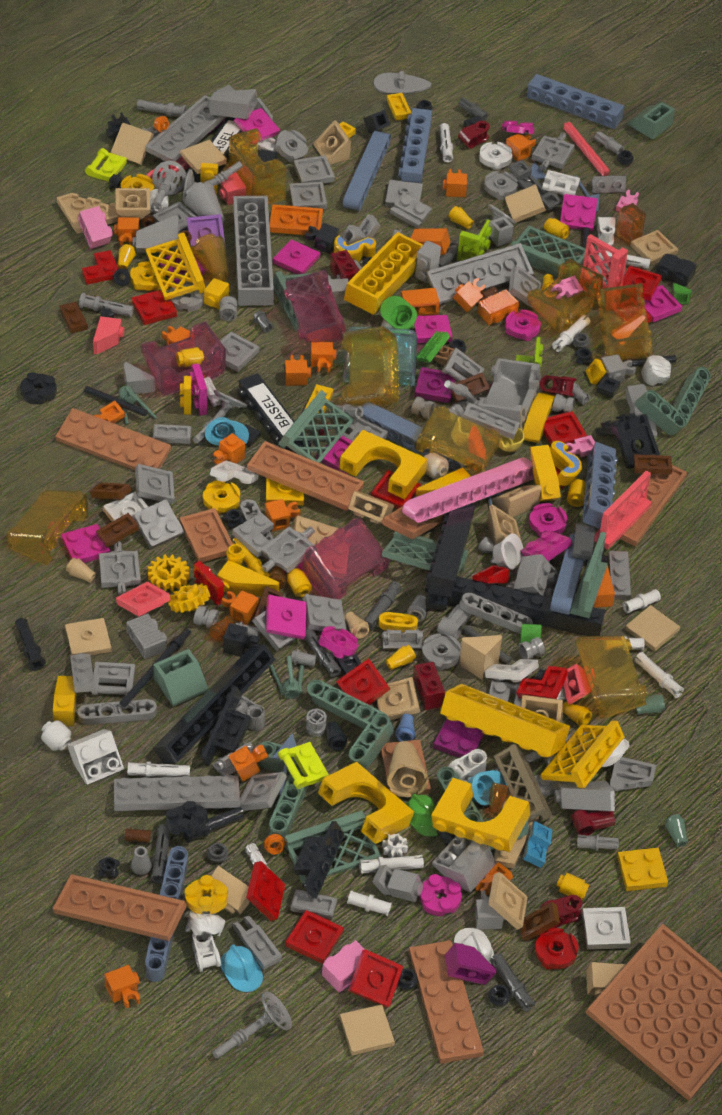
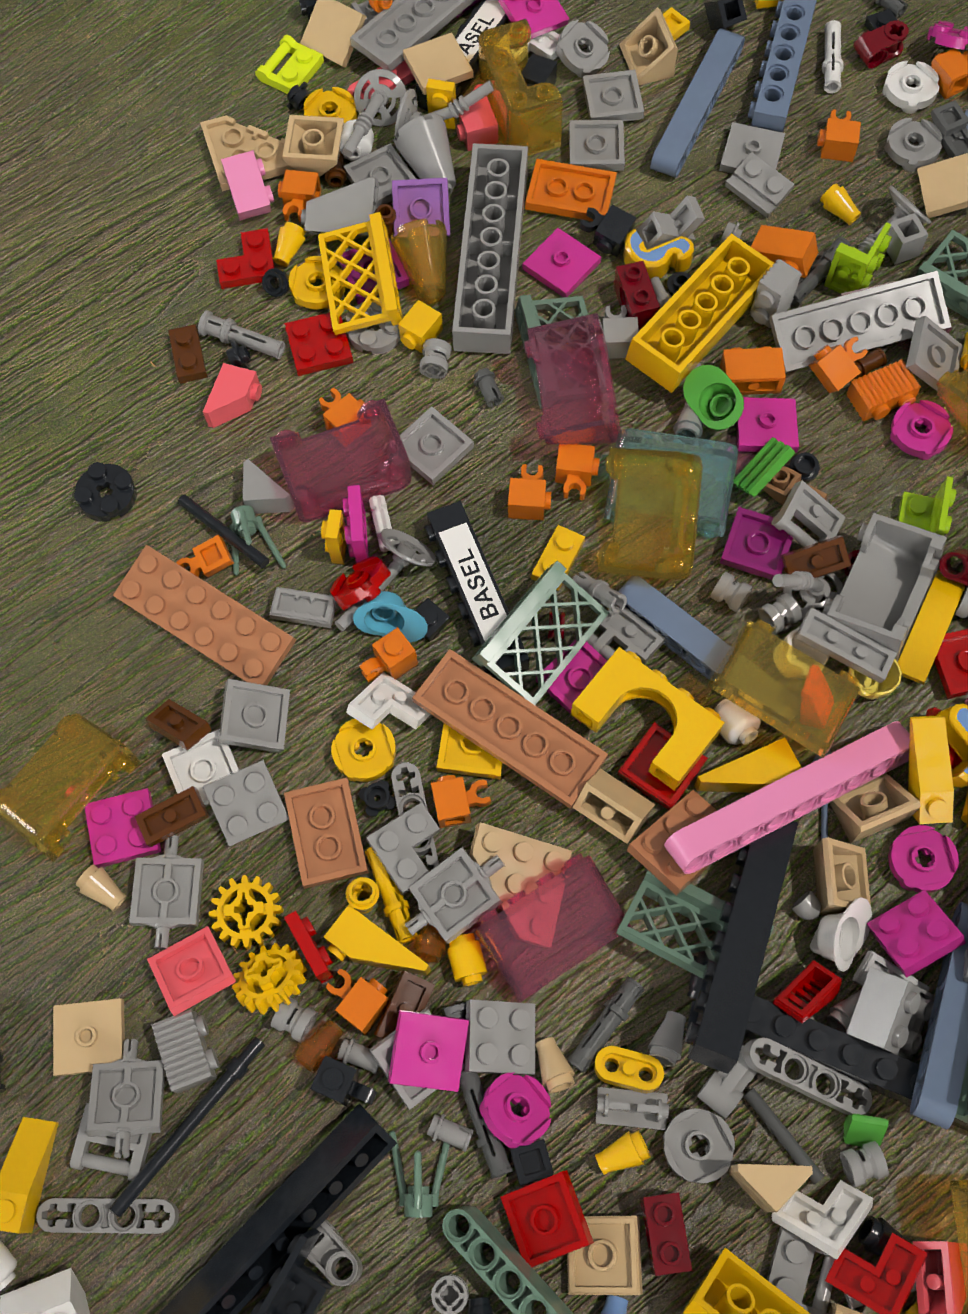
camera: 15 degrees right, 20 degrees up
(82, 672) = (57, 1131): light grey plate -> none
(119, 654) = (126, 1098): none -> light grey plate
(180, 677) = (224, 1163): sand green slope -> none
(189, 356) = (352, 460): yellow brick -> none
(208, 413) = (361, 584): none -> red plate

